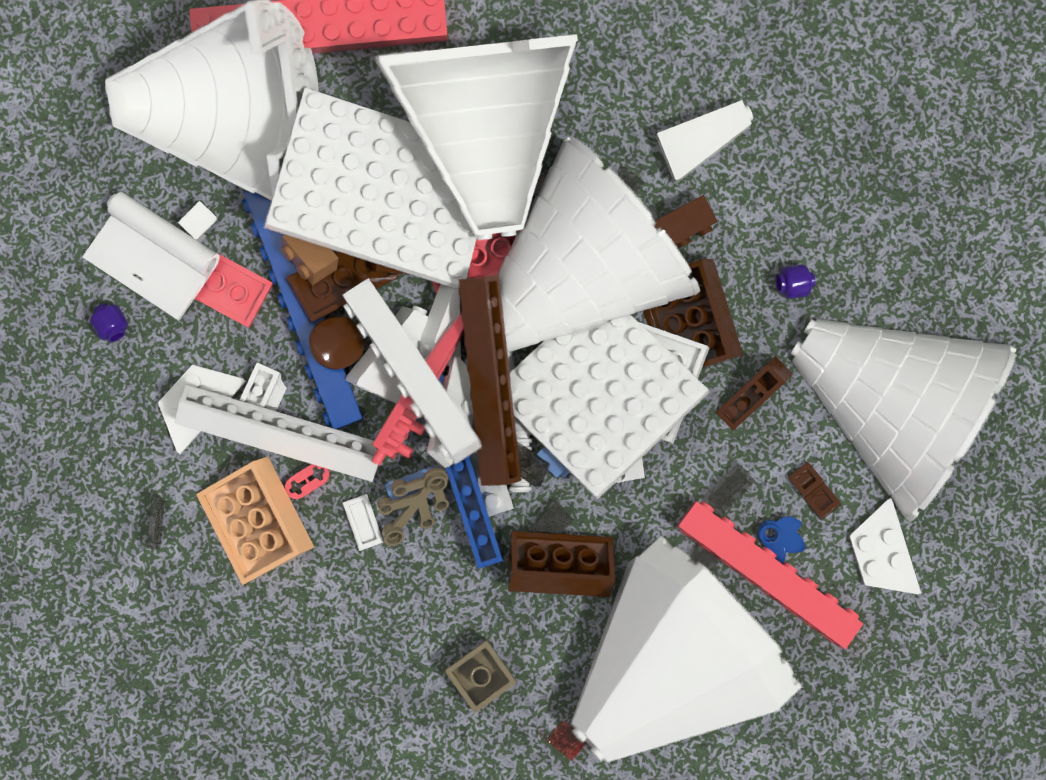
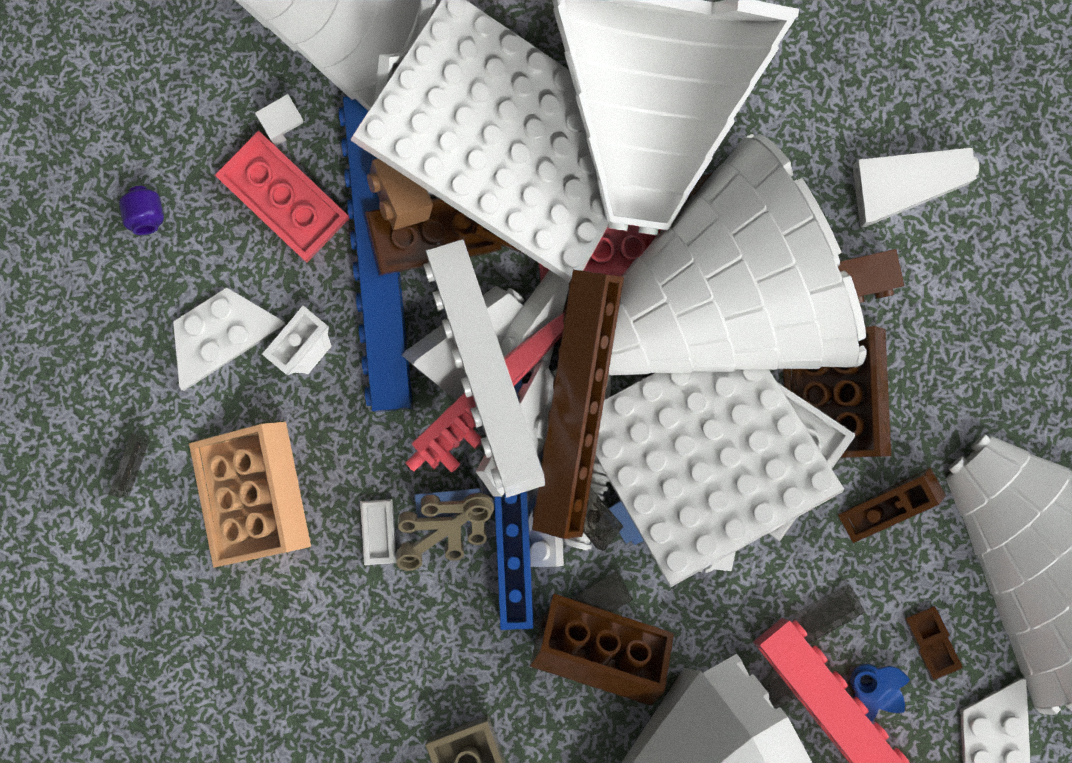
camera: 20 degrees right, 0 degrees up
(143, 244) = (227, 149): white door -> none
(276, 432) = (301, 396): white brick -> none
(310, 486) = (322, 456): coral beam -> none
(336, 343) = (403, 307): reddish brown piece -> none
(795, 281) = (977, 383): dark purple head -> none

